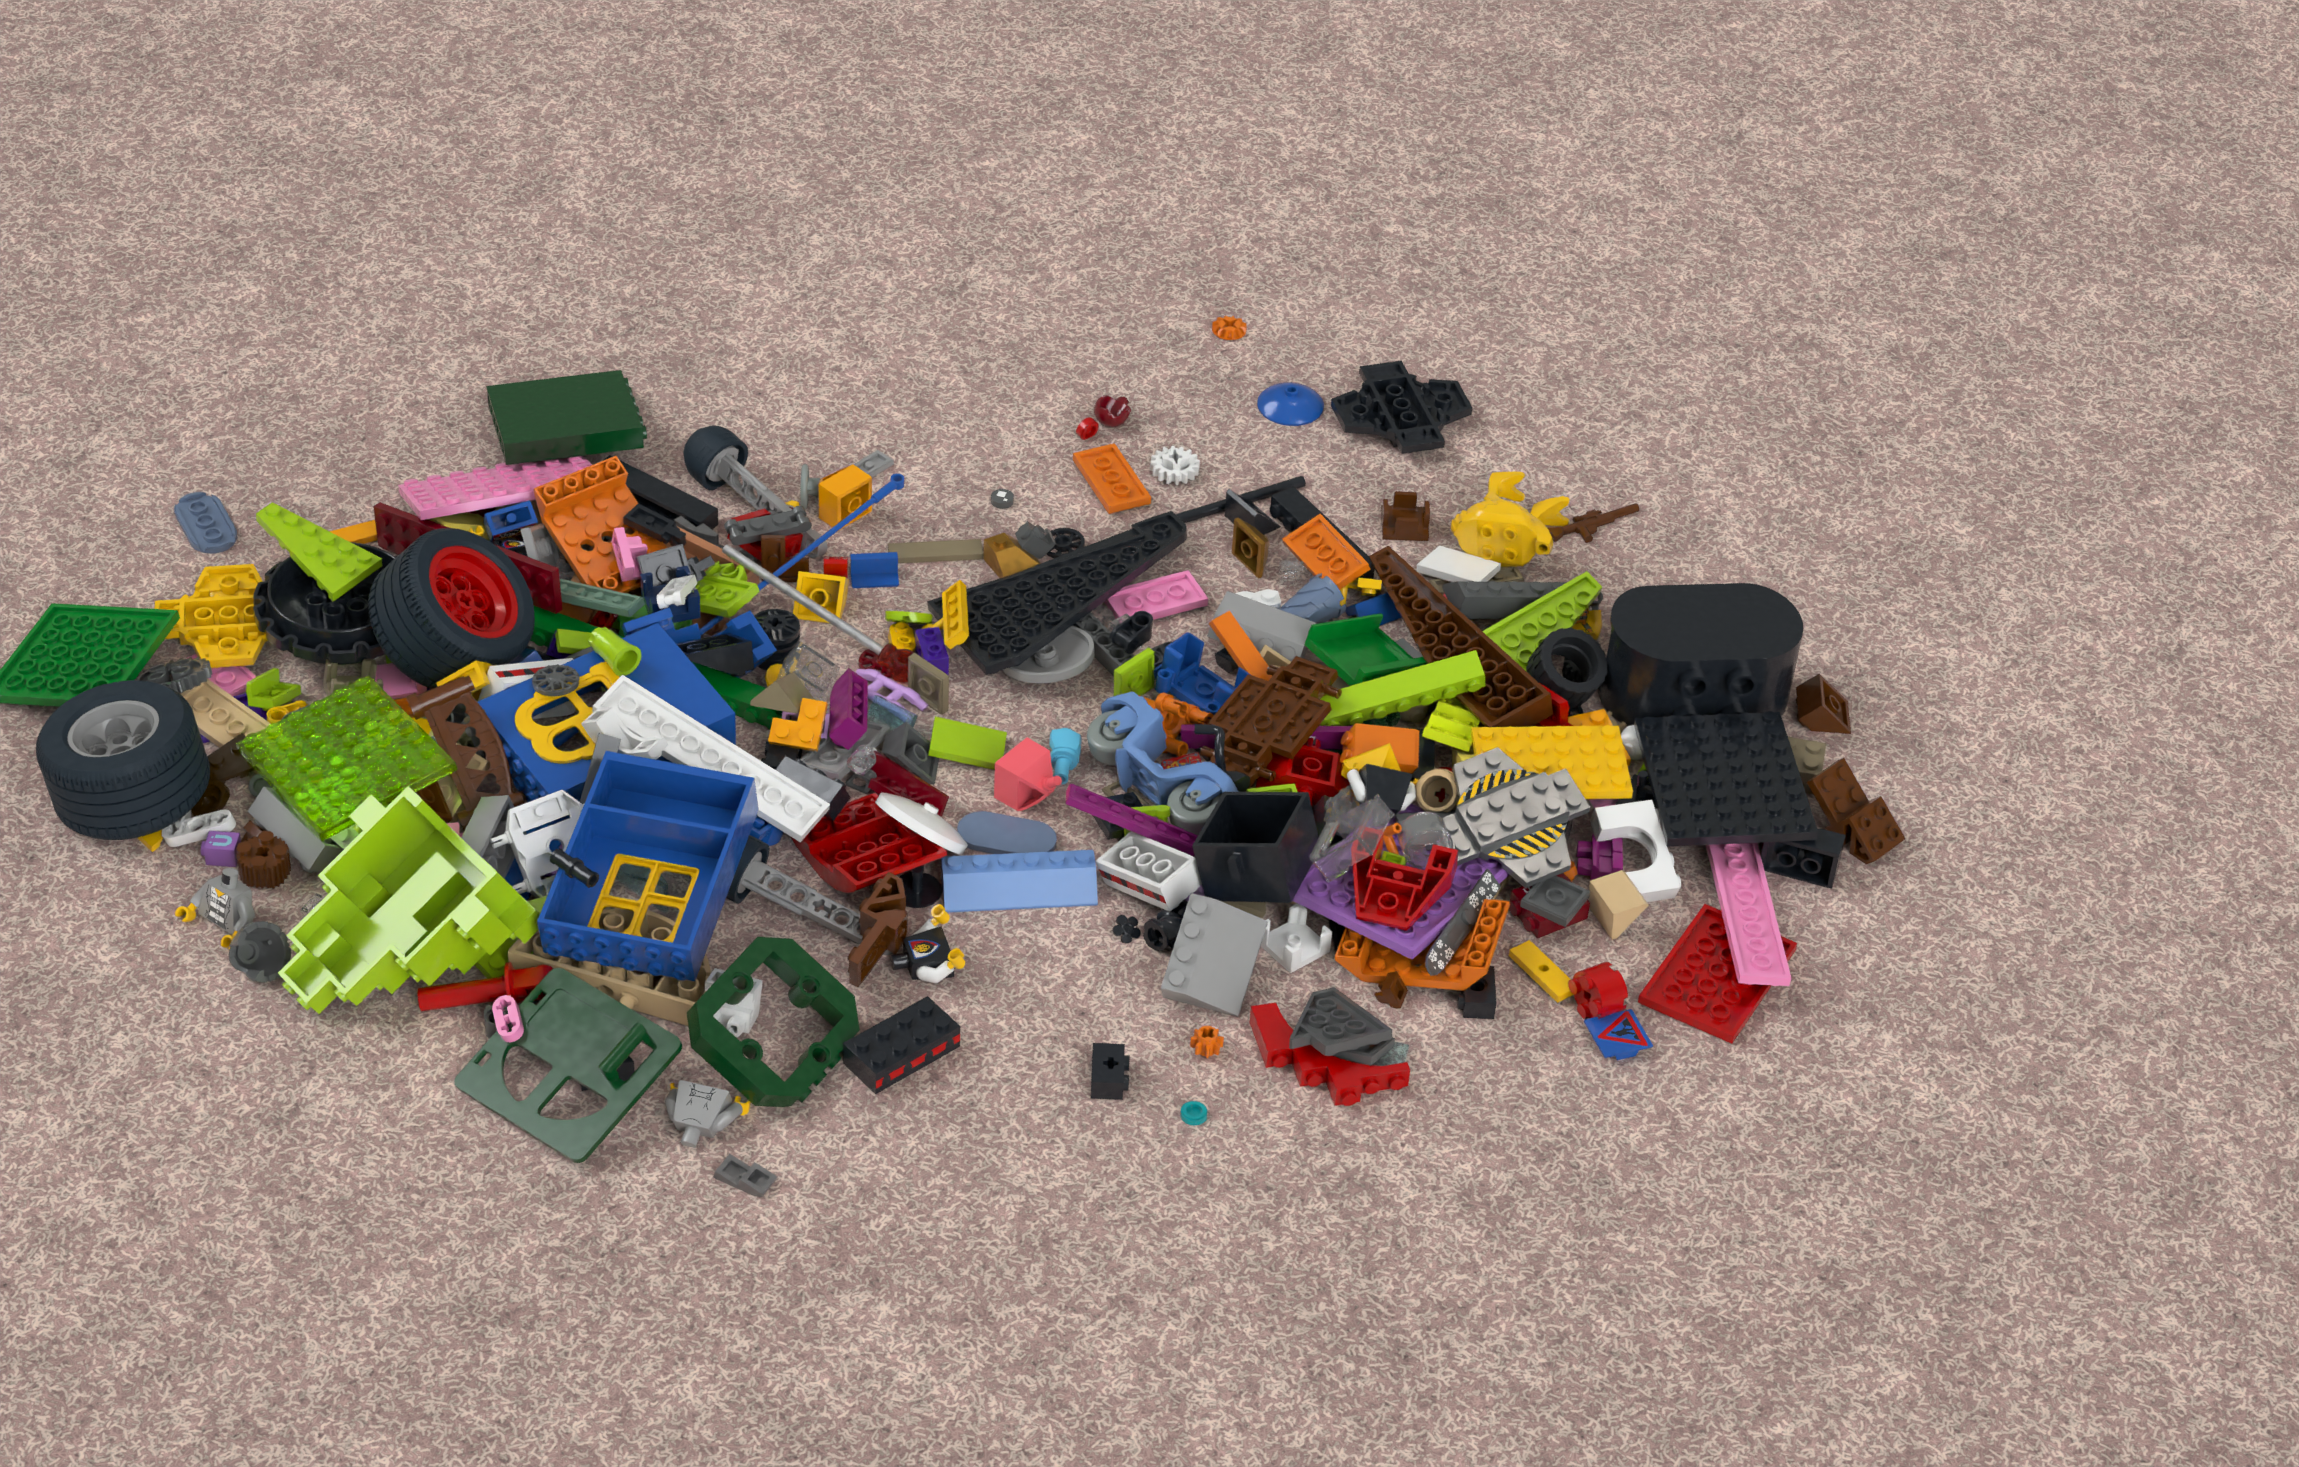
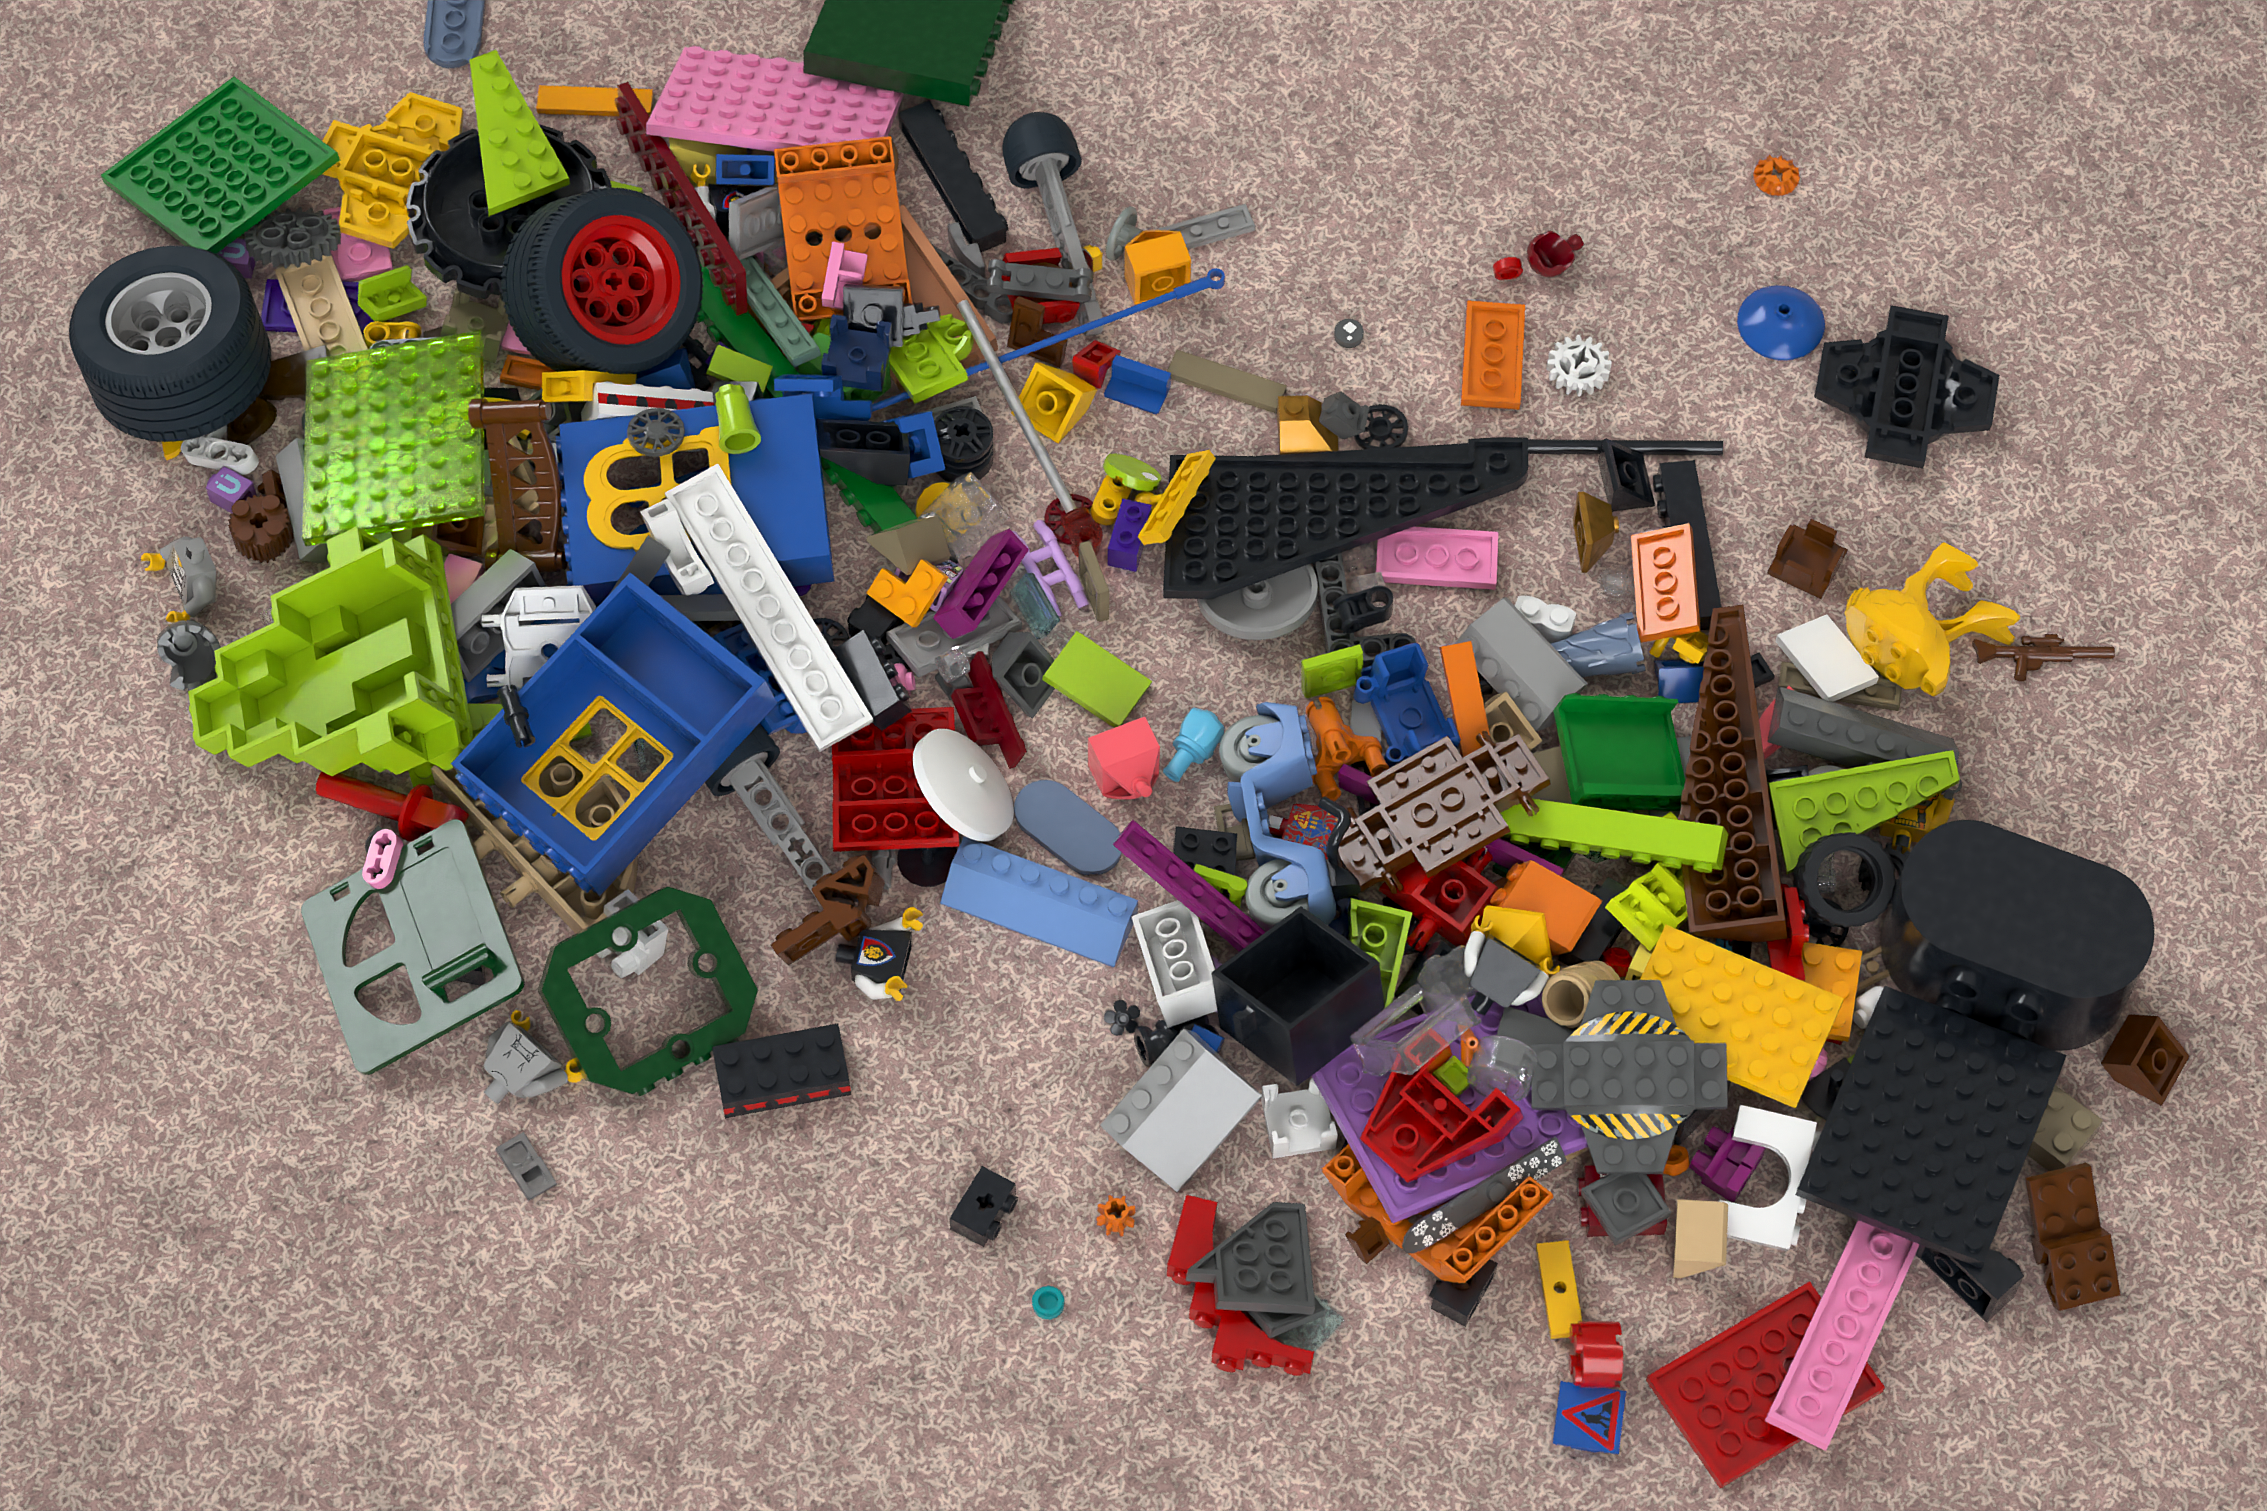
camera: 30 degrees right, 20 degrees up
(654, 525) = (895, 243): black hinge -> none
(676, 591) = (855, 357): white plate -> none

